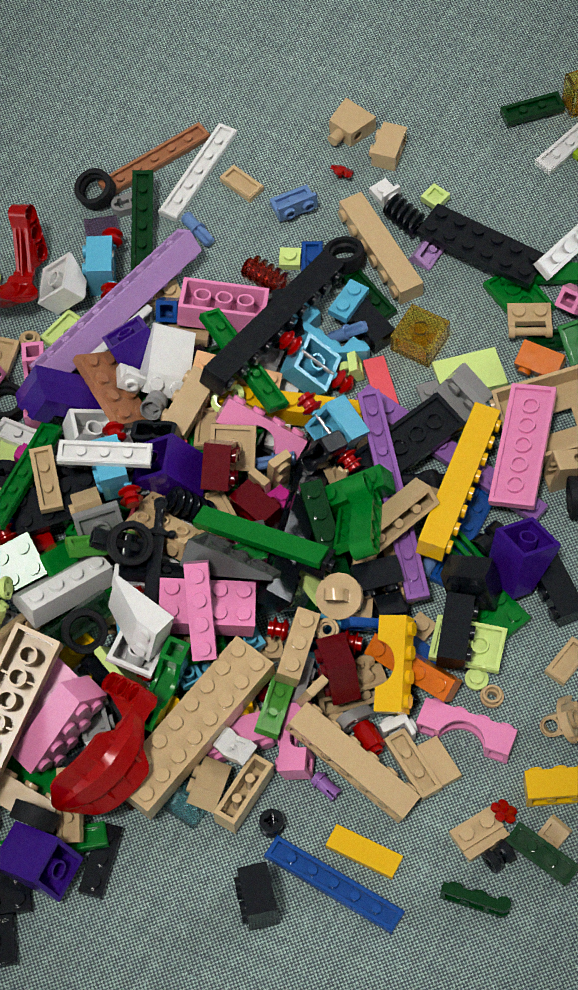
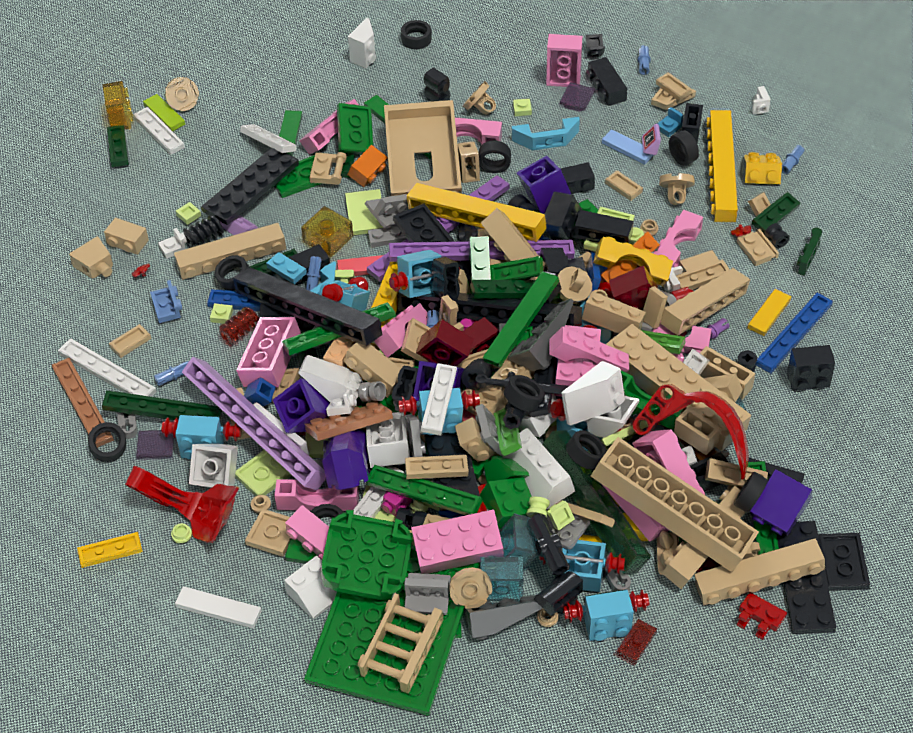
camera: 85 degrees left, 10 degrees down
(365, 516) = (499, 251): green beam -> none
(522, 446) = (450, 174): bright pink plate -> none

